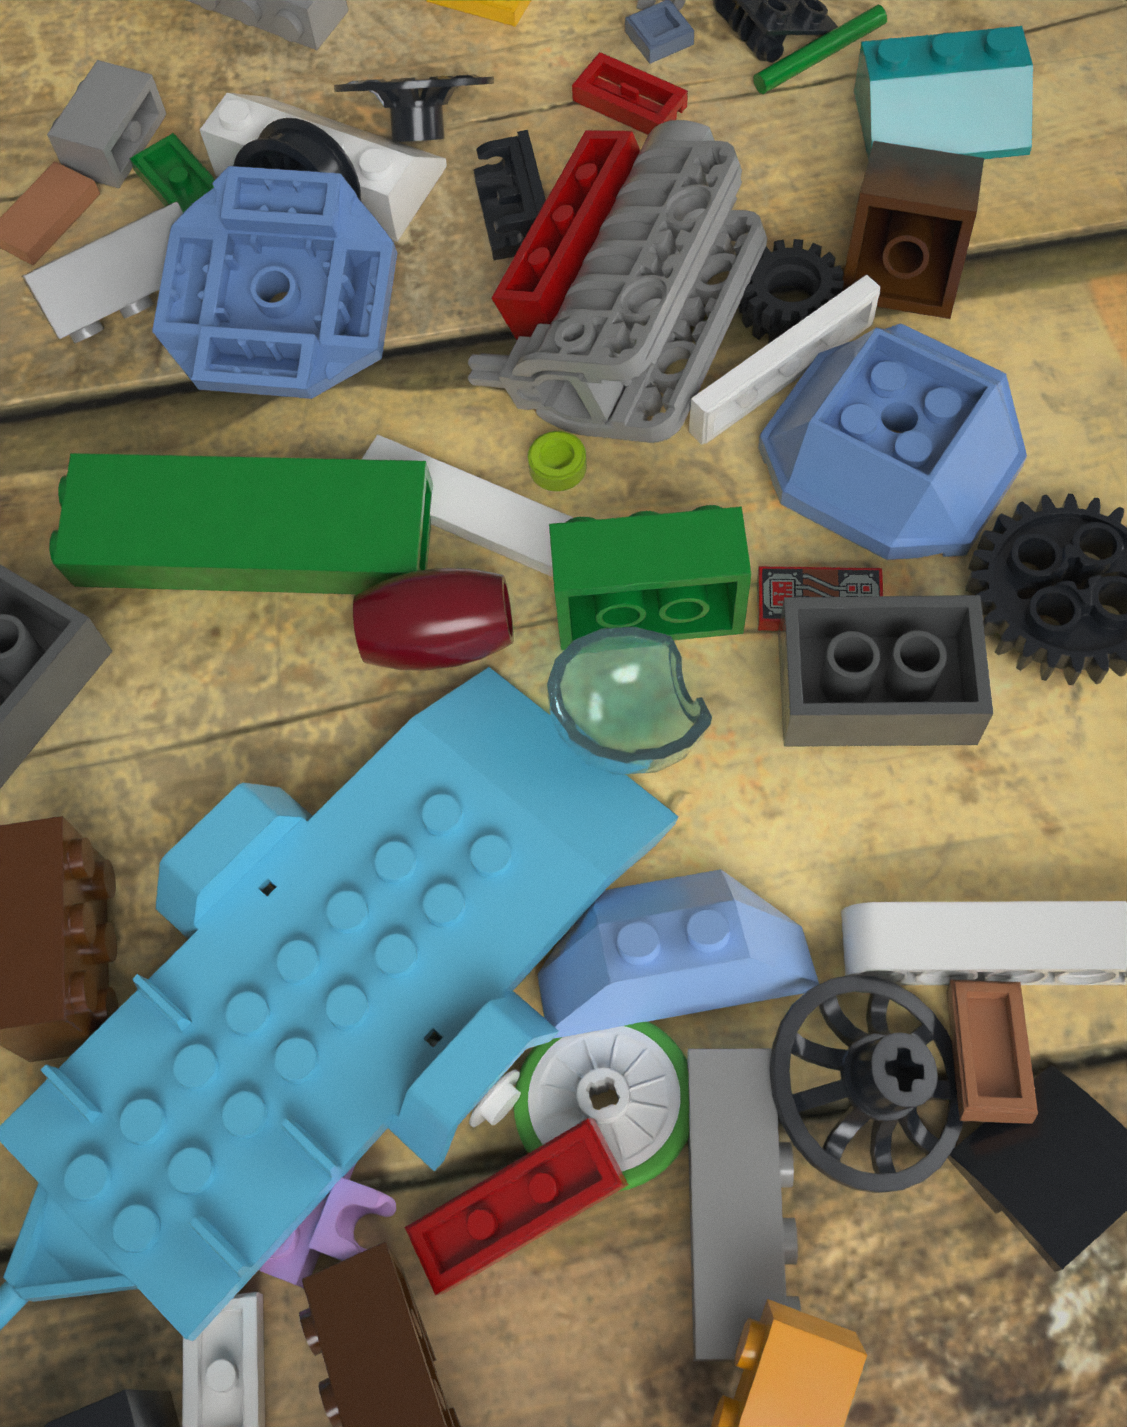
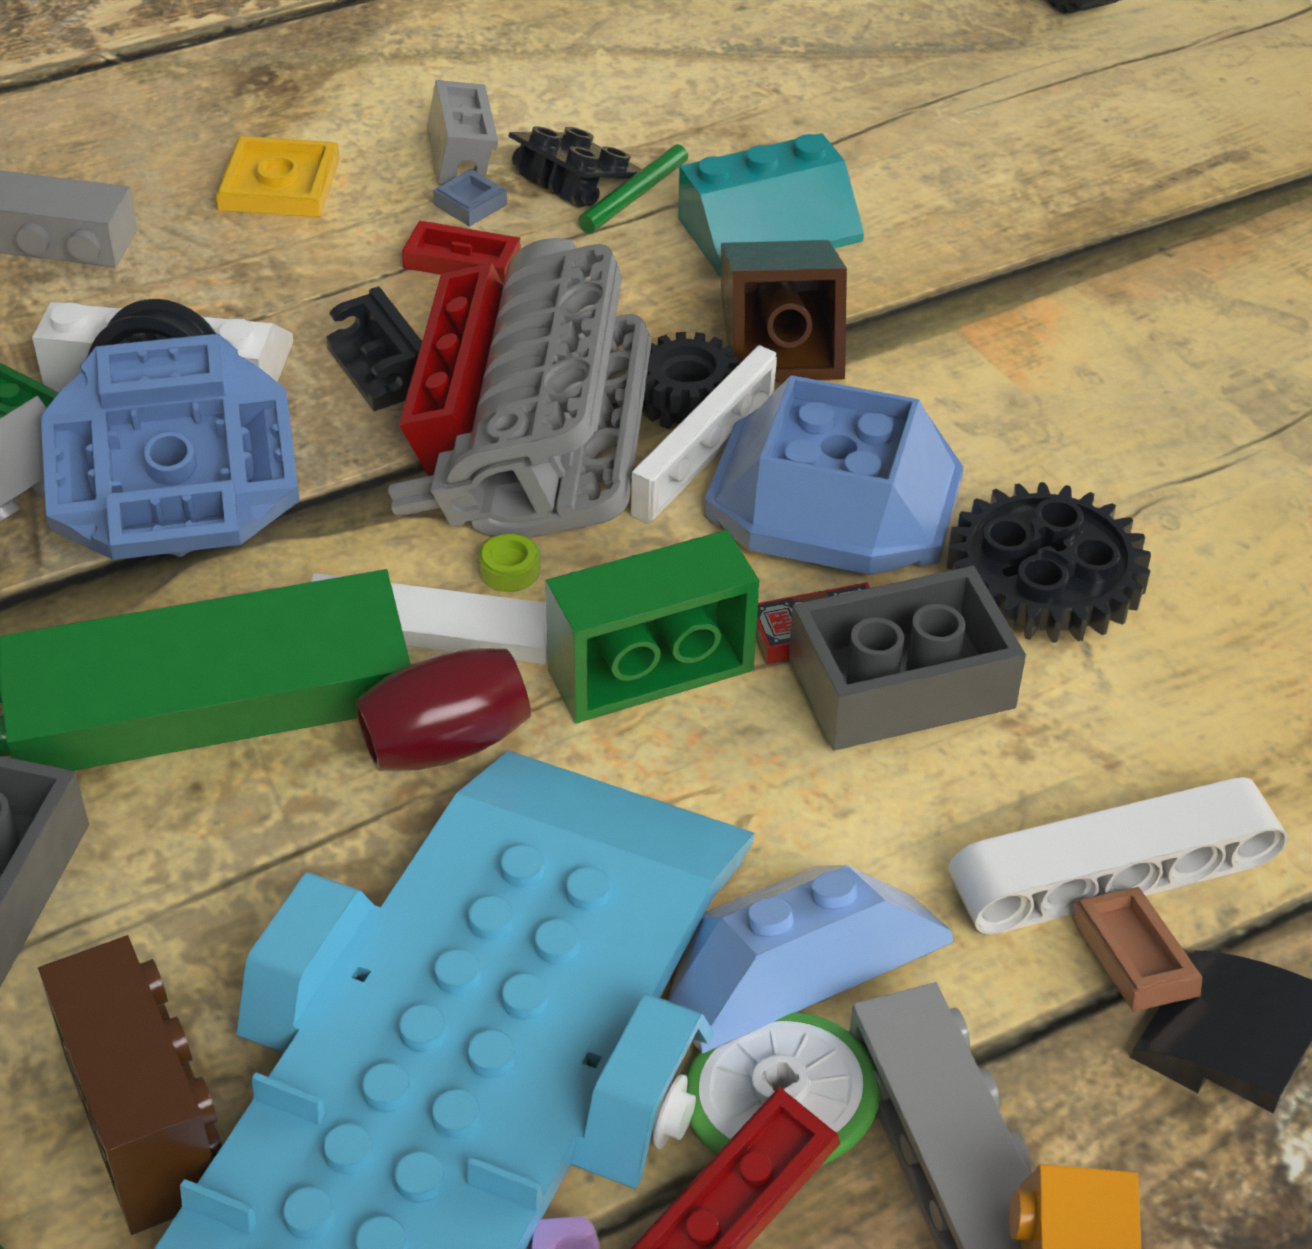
camera: 25 degrees left, 20 degrees down
(414, 117) = (250, 292): black wheel -> none
(625, 701) = (668, 736): clear light blue cylinder -> none
(880, 1076) = (1051, 980): black wheel -> none

